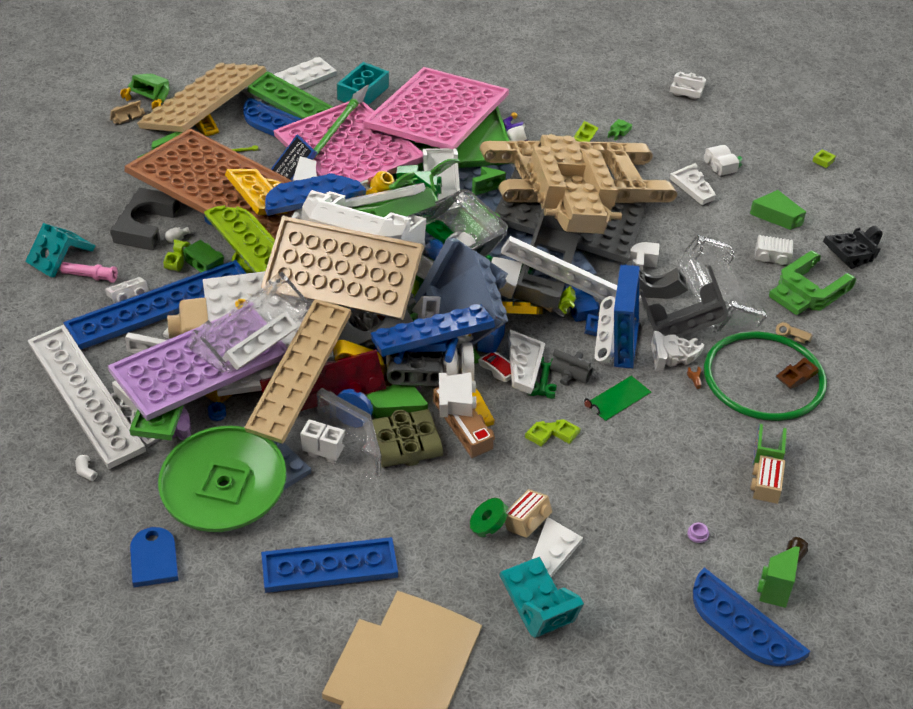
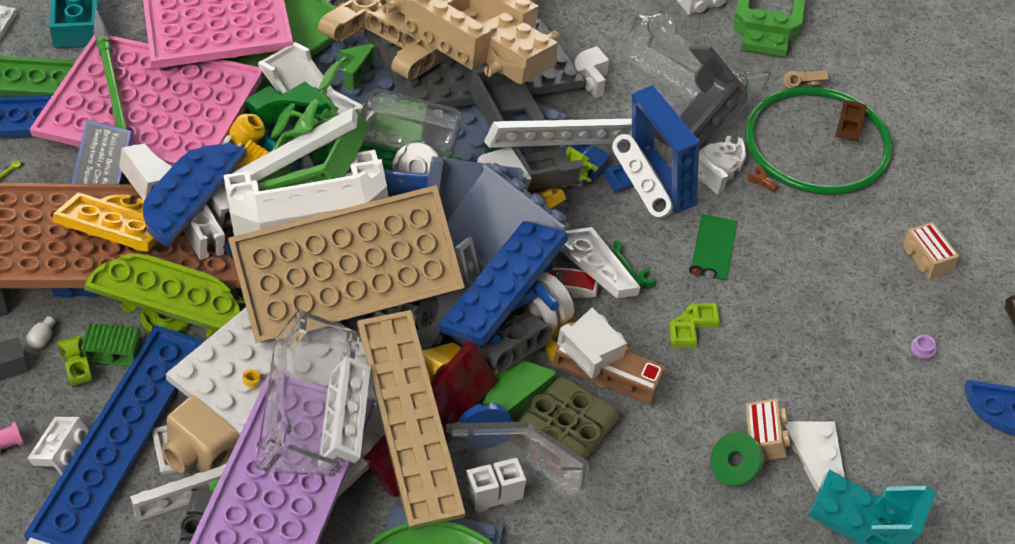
camera: 40 degrees left, 5 degrees up
(214, 407) = (334, 522): blue bush -> none
(571, 367) = (646, 239): dark grey pin -> none
(662, 286) = (620, 99): dark grey arch -> none
(779, 454) = (893, 221): bright green piece -> none

